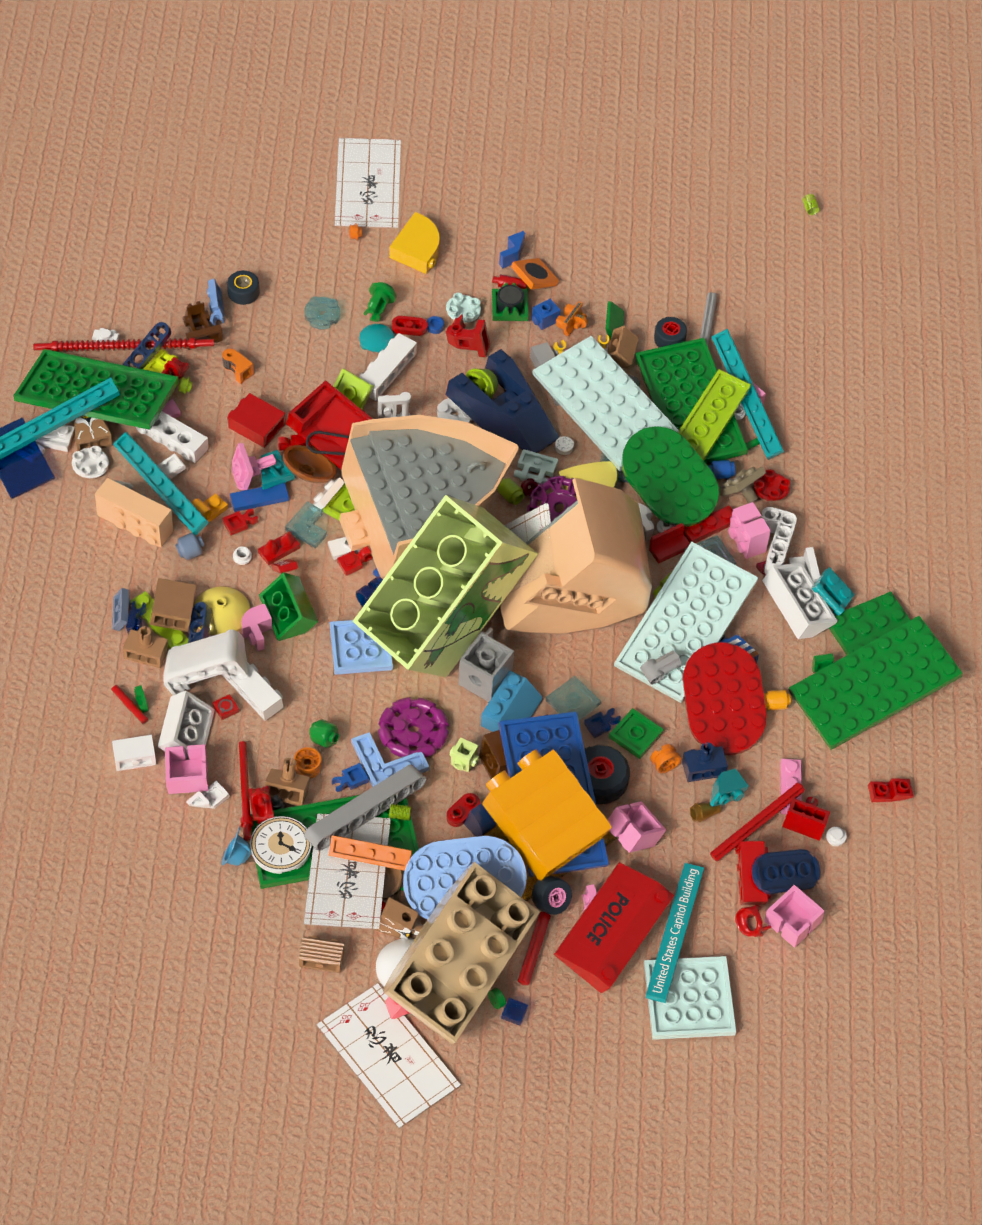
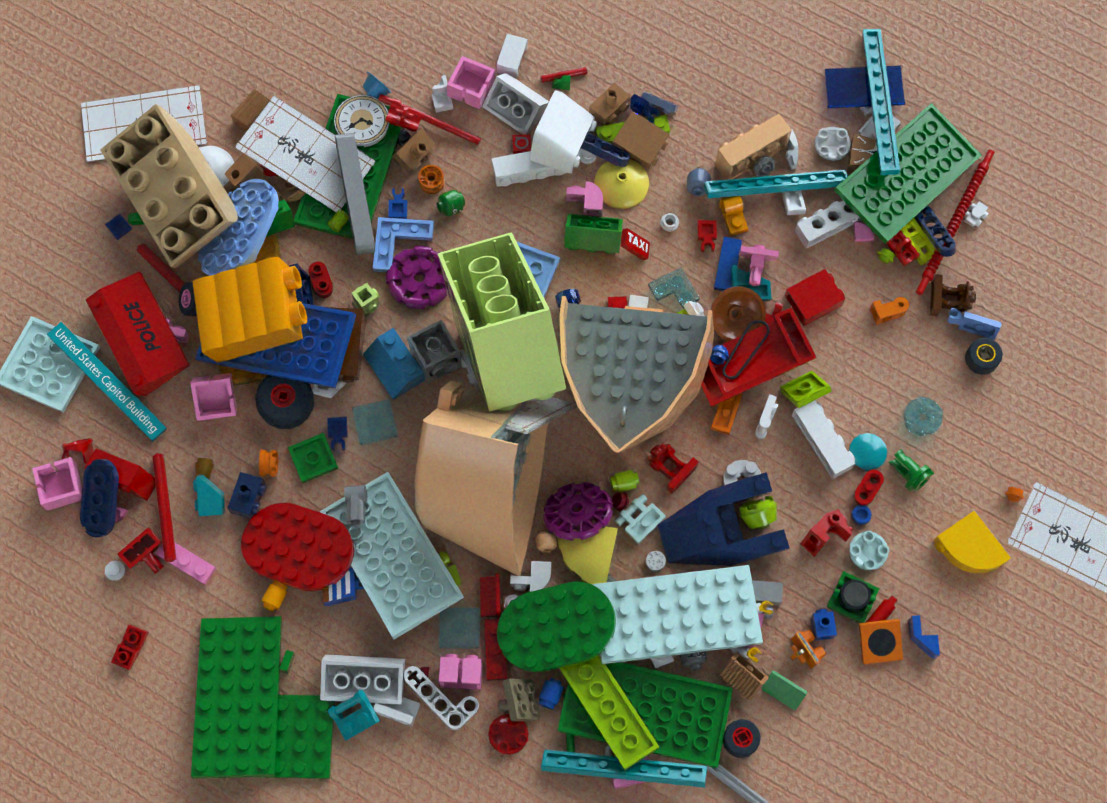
camera: 120 degrees right, 15 degrees up
(279, 548) = (663, 255): red tile -> none
(369, 852) = (306, 171): orange plate -> none

